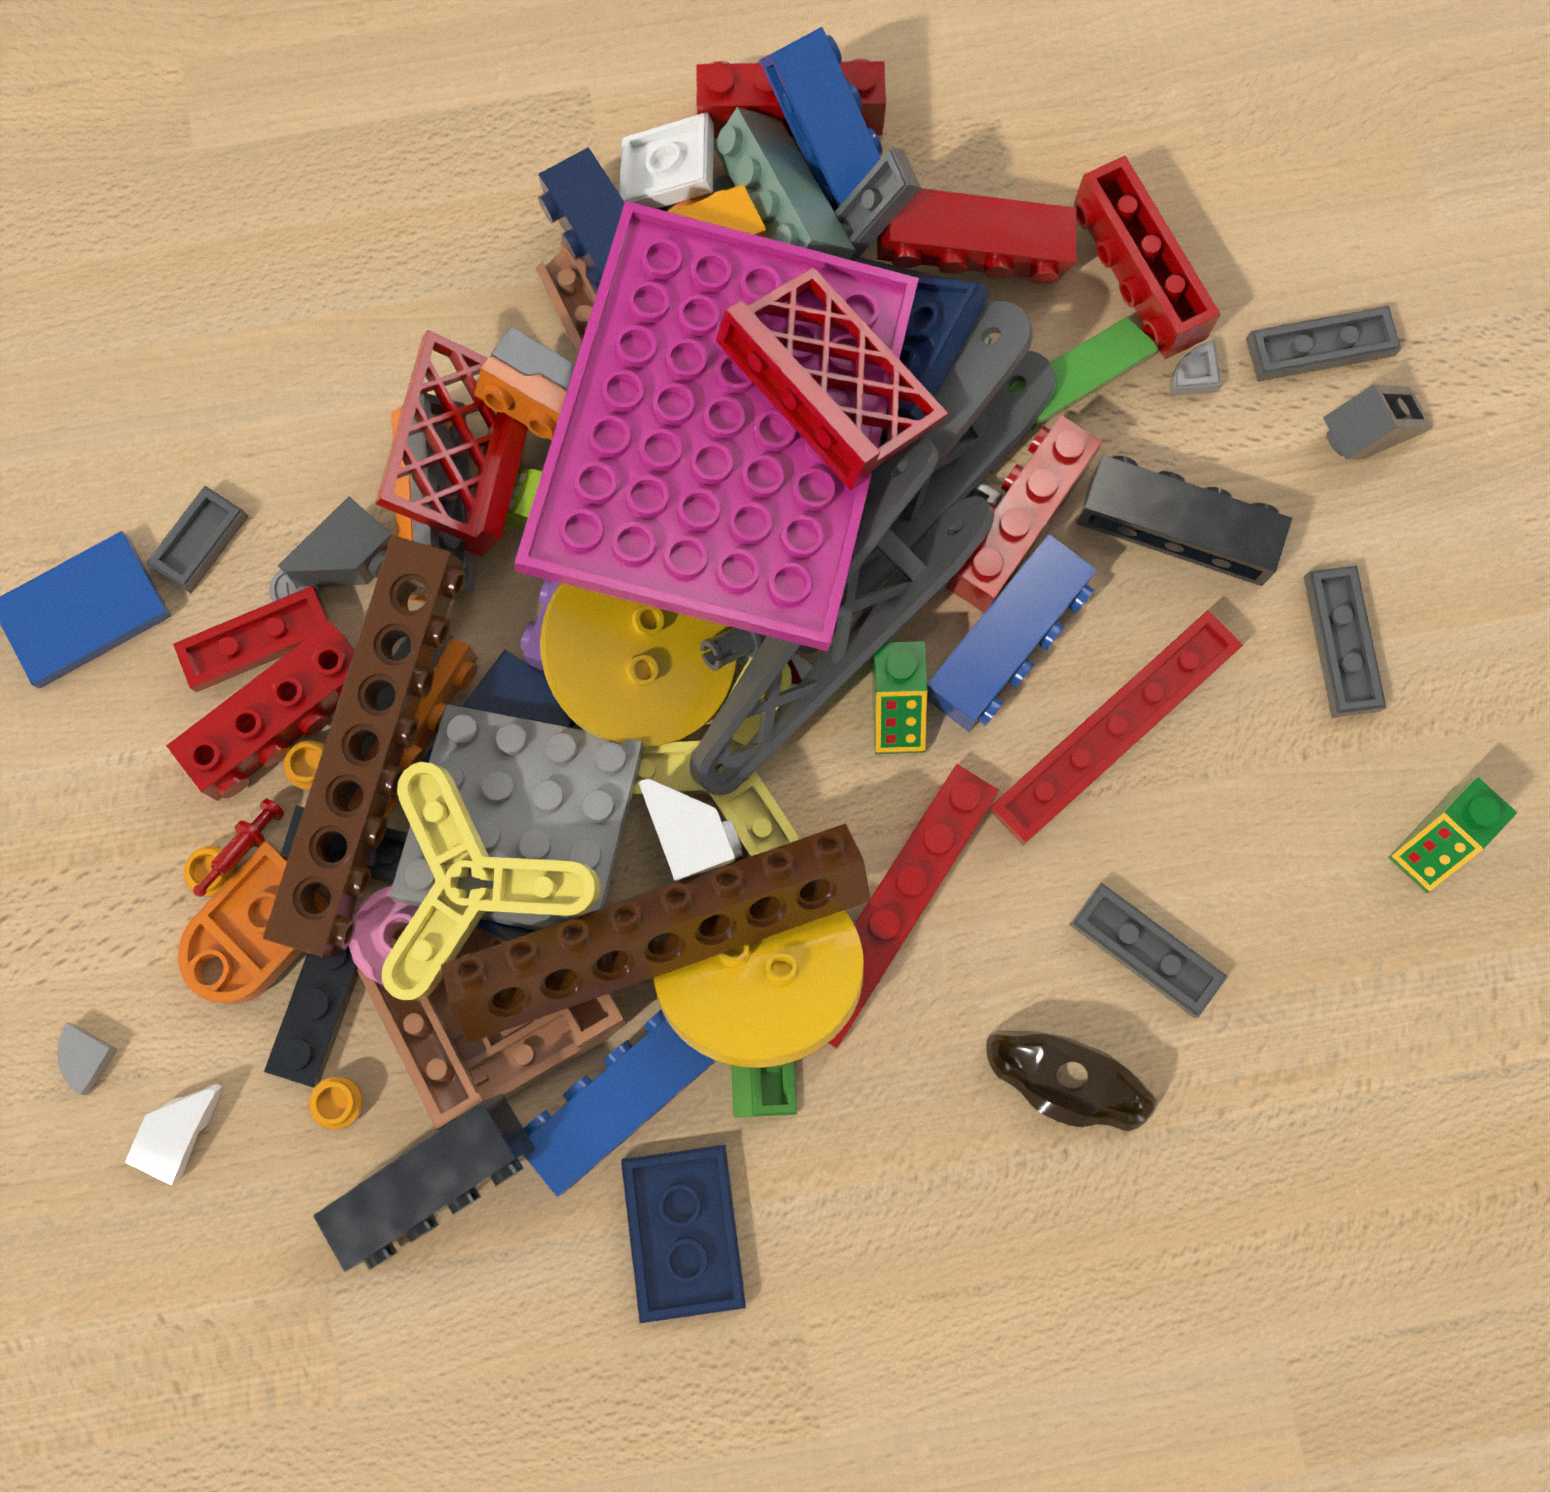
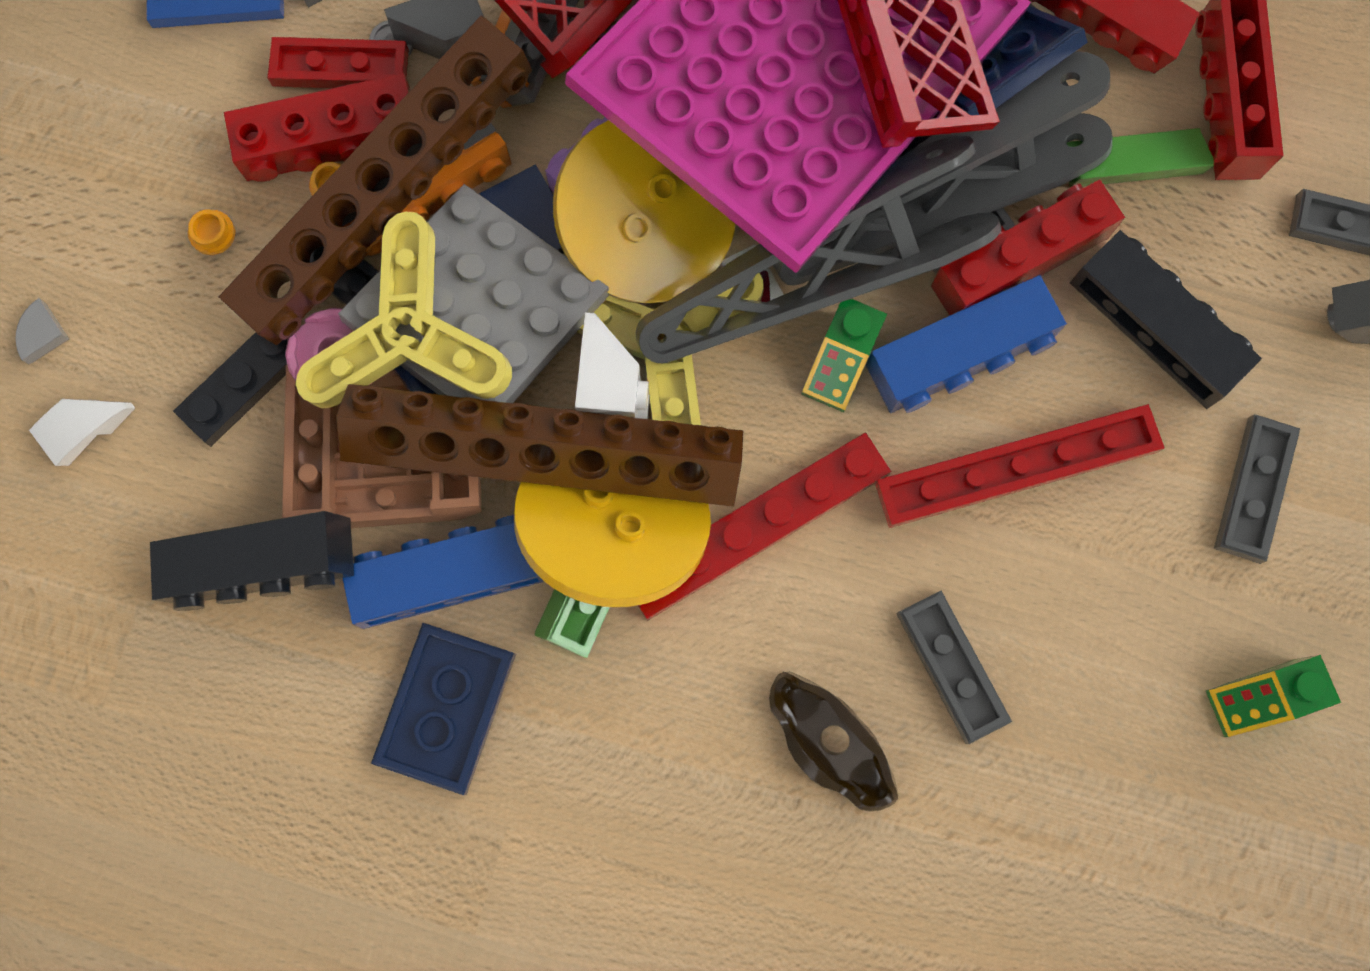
camera: 25 degrees right, 0 degrees up
(233, 930) = (197, 285): orange tile -> none
(246, 837) = (244, 220): red piece -> none
(336, 1103) = (217, 464): light orange plate -> none
(730, 647) = (723, 243): dark grey axle -> none
(1197, 372) = (1238, 203): light grey tile -> none

